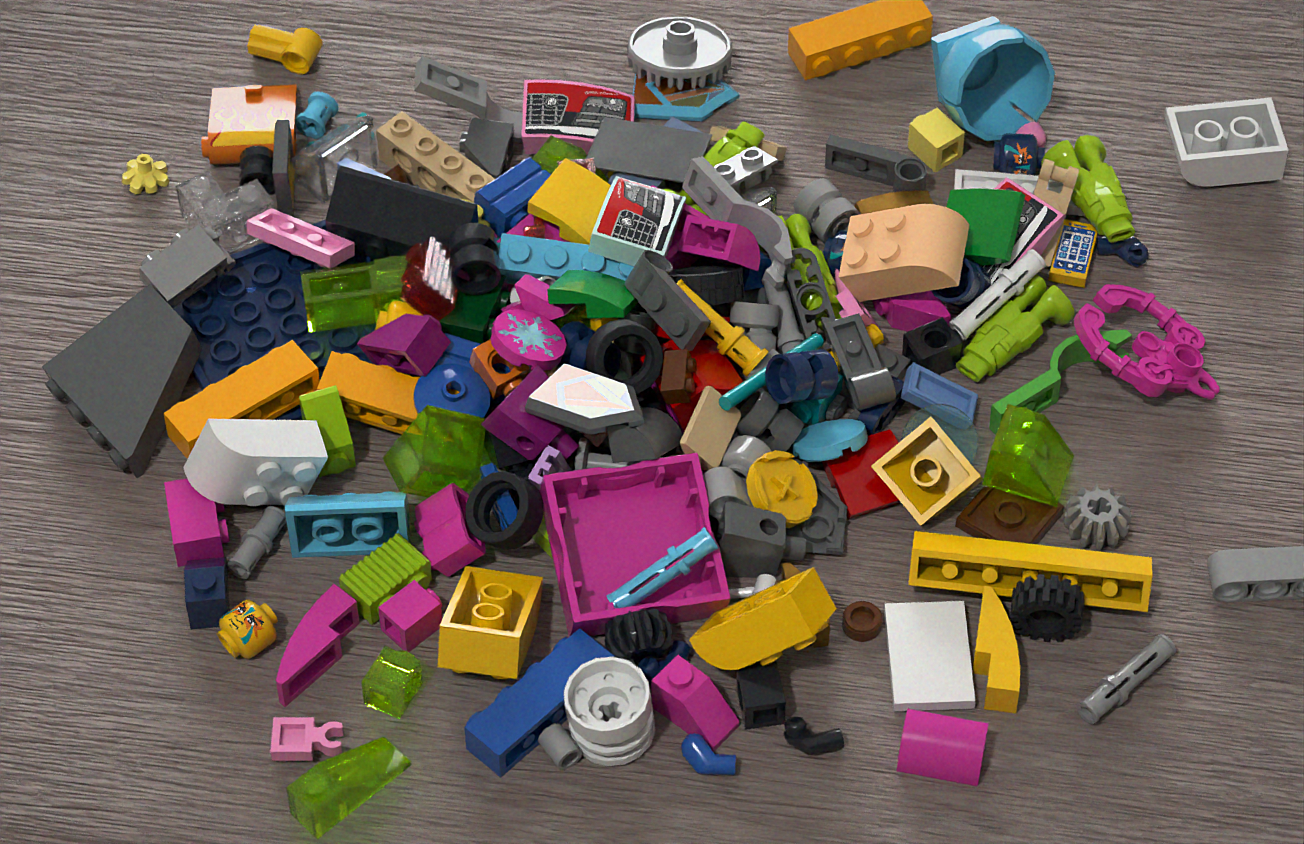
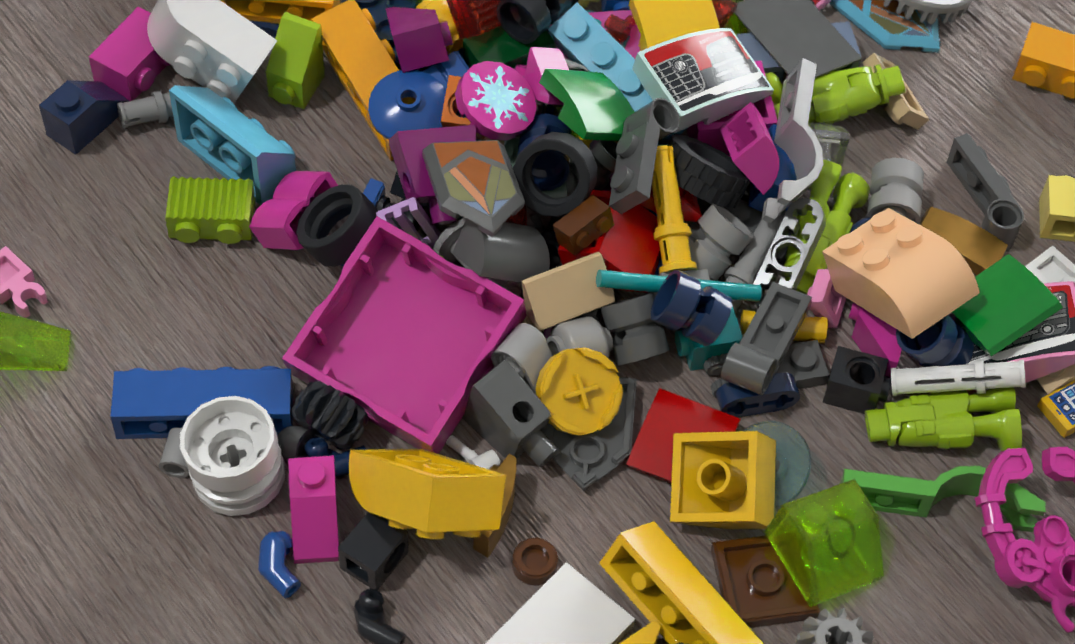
camera: 40 degrees right, 5 degrees up
(247, 629) = (72, 165): yellow head -> none
(316, 643) = (101, 216): dark pink slope -> none
(392, 681) = (121, 292): clear neon green brick -> none
(411, 615) = (194, 253): dark pink brick -> none
(436, 451) = (342, 138): clear neon green slope -> none
(490, 622) = (234, 306): yellow brick -> none
(702, 545) = (438, 378): medium azure pin -> none
(747, 168) = (861, 106): light grey hinge -> none
(829, 438) = (676, 382): medium azure tile -> none
(928, 388) = (812, 416): medium blue tile -> none

